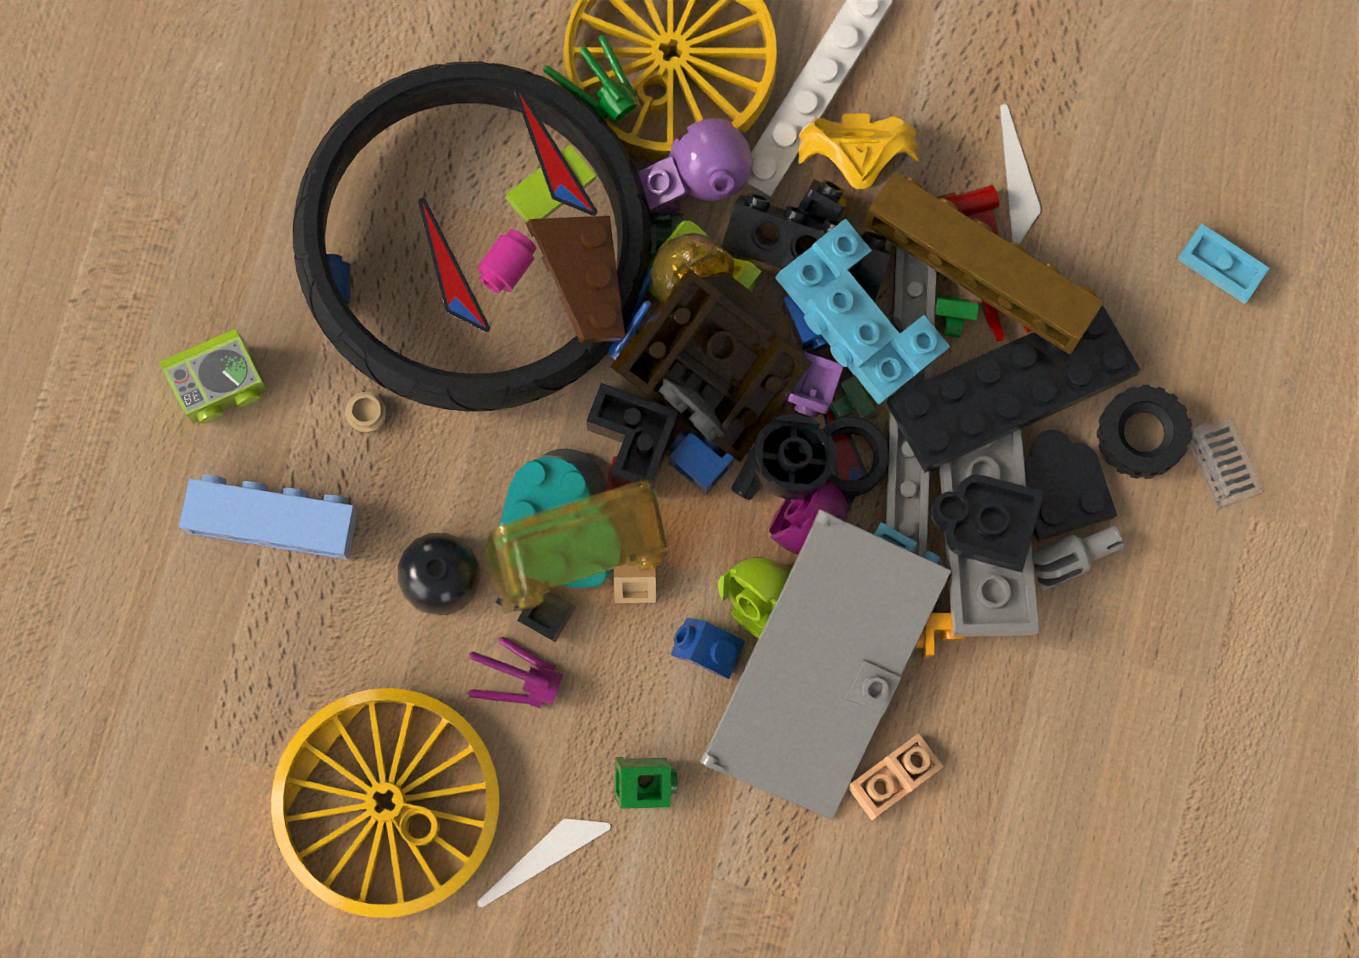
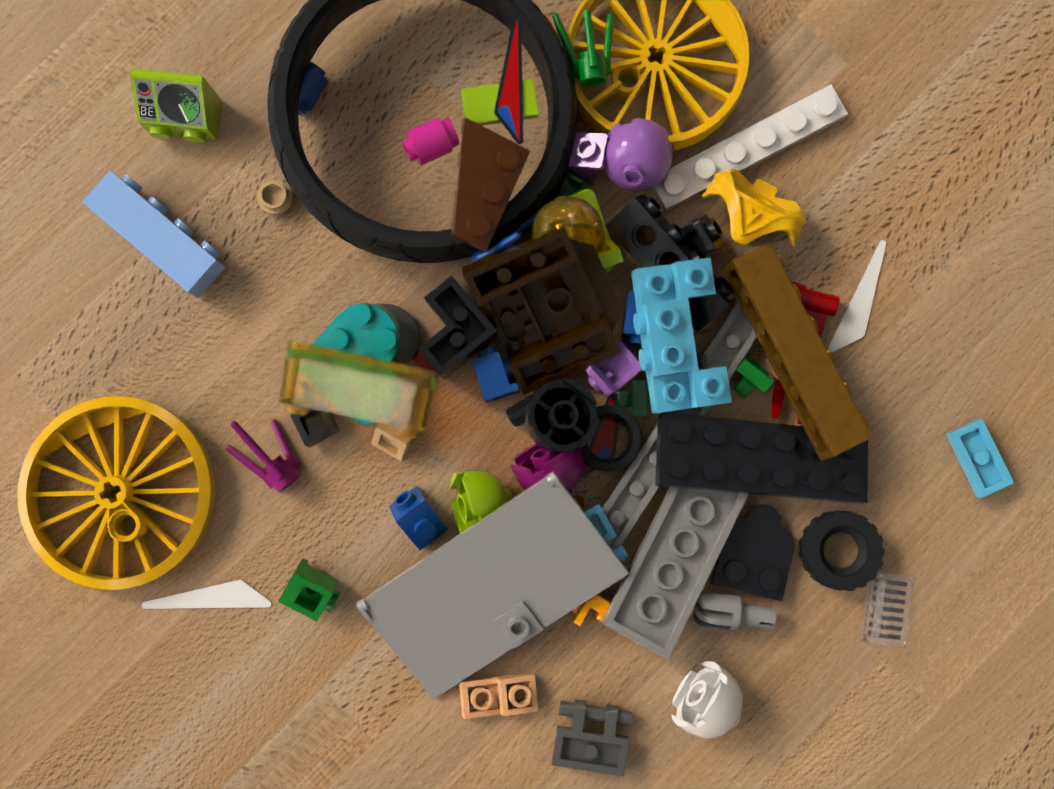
camera: 35 degrees right, 5 degrees up
(438, 573) = (254, 346): black cylinder -> none
(454, 288) = (380, 136): sticker -> none
(685, 398) = (511, 346): dark grey dish -> none
(989, 520) = (681, 552): black plate -> none
(1018, 772) = (592, 749): none -> dark grey plate
(1104, 654) = (708, 702): none -> white cylinder

